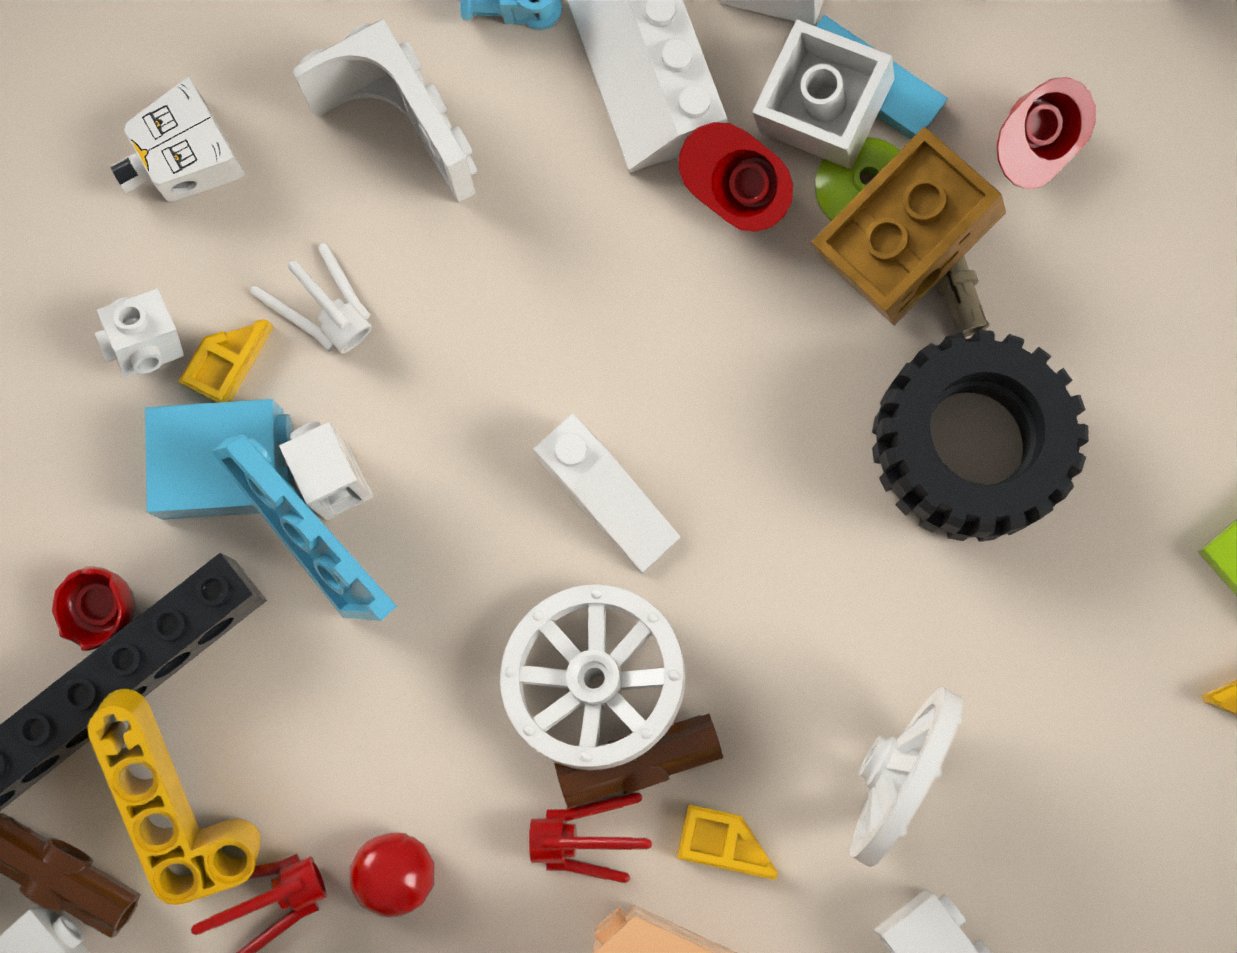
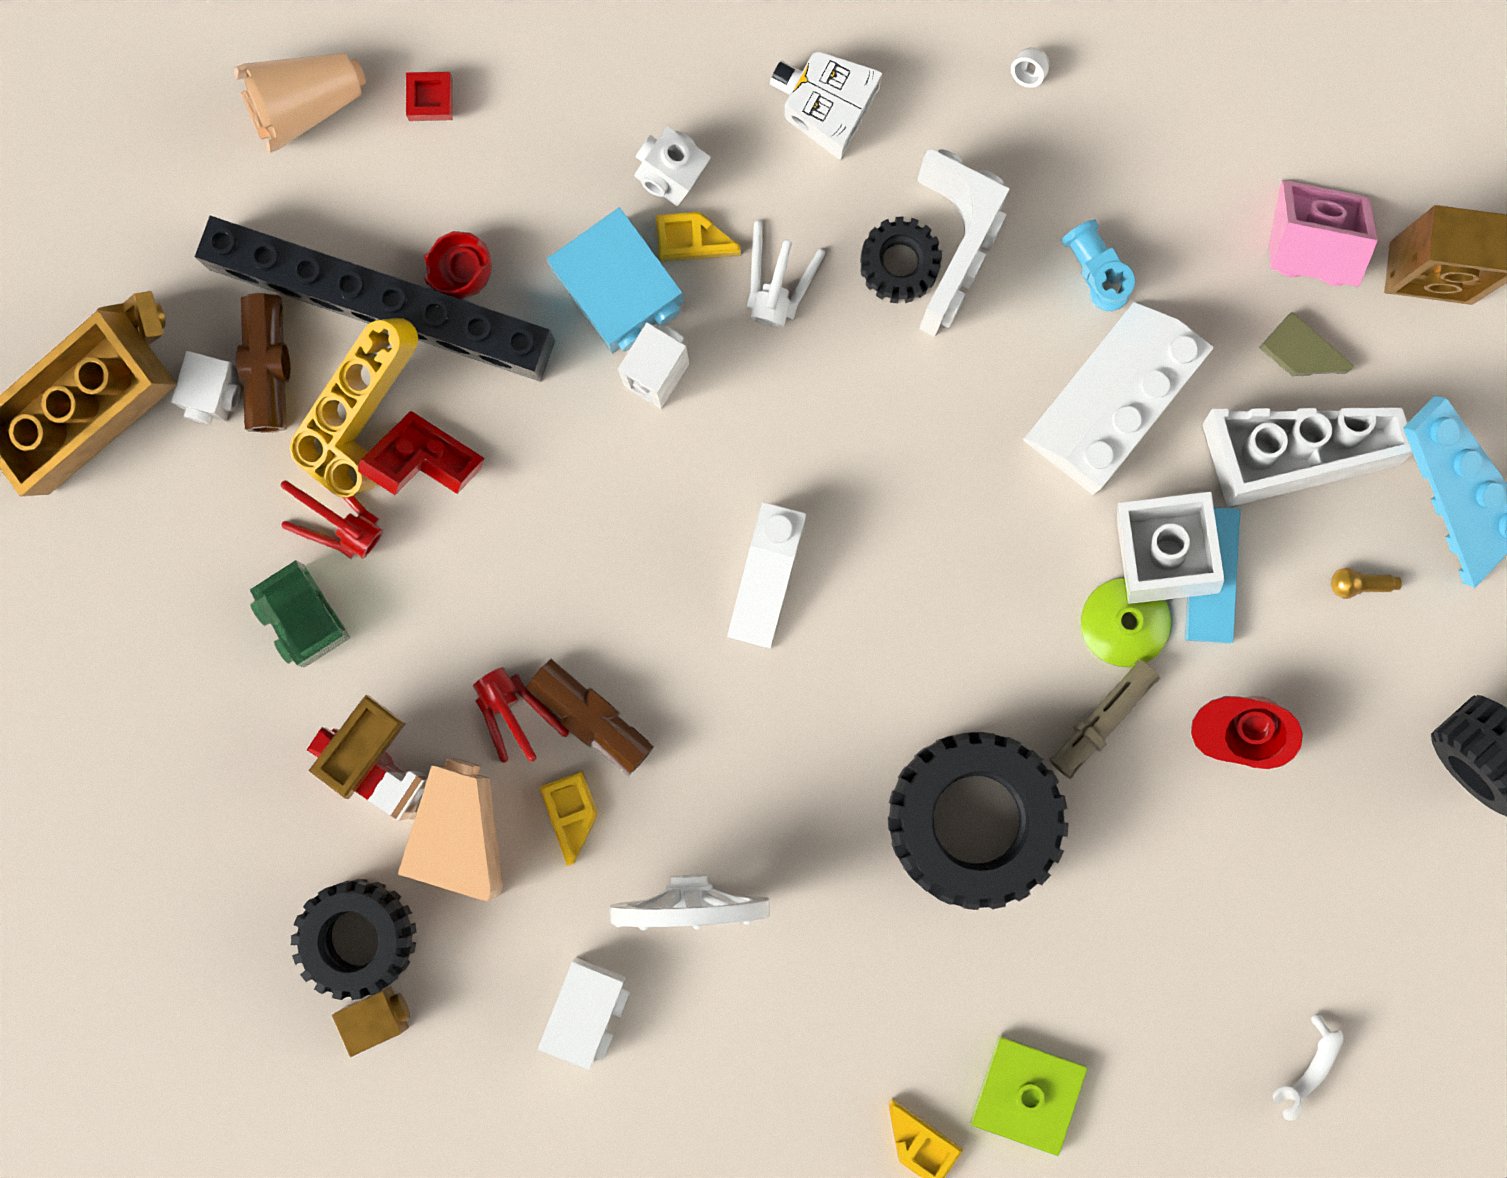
camera: 60 degrees right, 5 degrees up
(249, 763) = (416, 447): none -> red plate
(302, 532) = (598, 378): medium azure wing -> none
(371, 149) = (906, 234): none -> black tyre
(392, 874) = (405, 594): red hair -> none
(586, 665) = (631, 637): white wheel -> none
(736, 176) = (1063, 521): red piece -> none
(910, 225) = (1103, 673): pearl gold piece -> none

